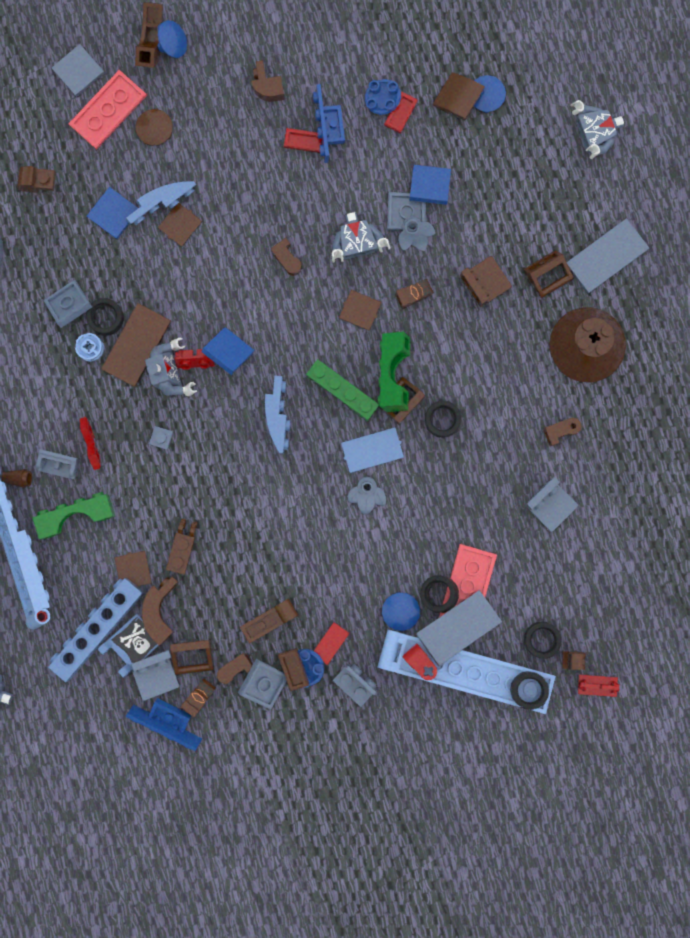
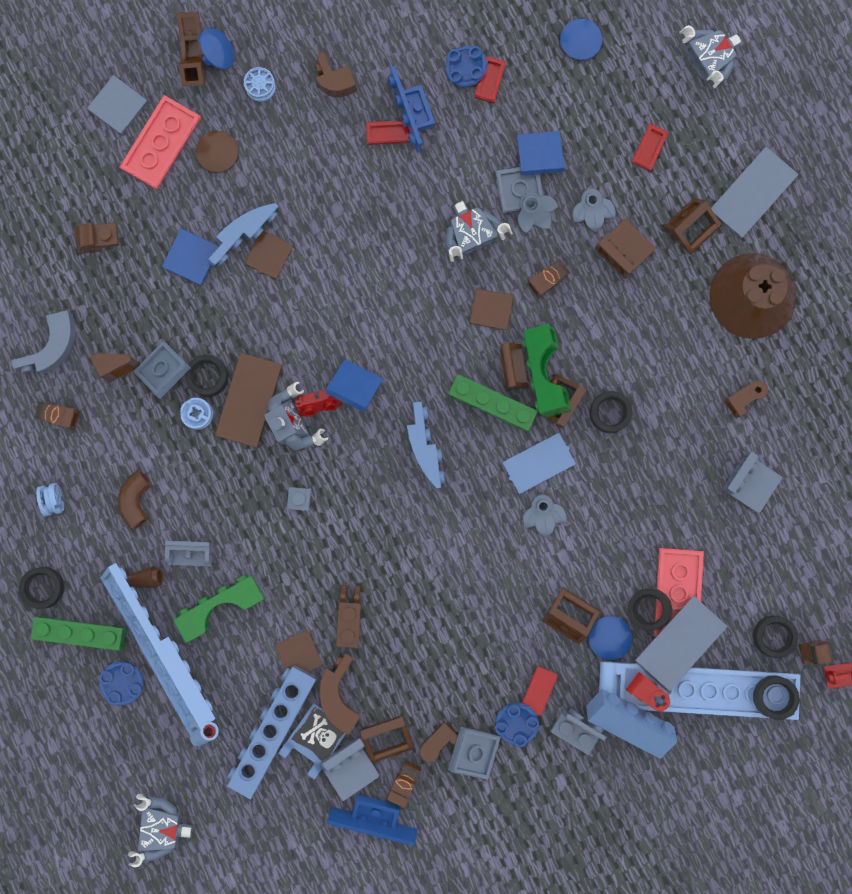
camera: 20 degrees left, 0 degrees up
(17, 409) = (129, 499): none -> reddish brown cylinder
(27, 292) = (113, 365): none -> reddish brown tile
(92, 451) = (217, 514): red tile -> none
(202, 77) = (259, 85): none -> light blue wheel
(269, 621) = (465, 680): reddish brown plate -> none
(290, 263) = (396, 268): reddish brown leg -> none
(293, 669) = (505, 729): reddish brown tile -> none
(365, 592) = (566, 624): none -> reddish brown tile
(368, 362) = (513, 366): none -> reddish brown tile
(401, 686) = (631, 723): none -> medium blue brick
(458, 96) = (551, 47): reddish brown slope -> none
(465, 245) = (593, 213): none -> sand blue plate
(526, 198) = (649, 147): none -> red tile

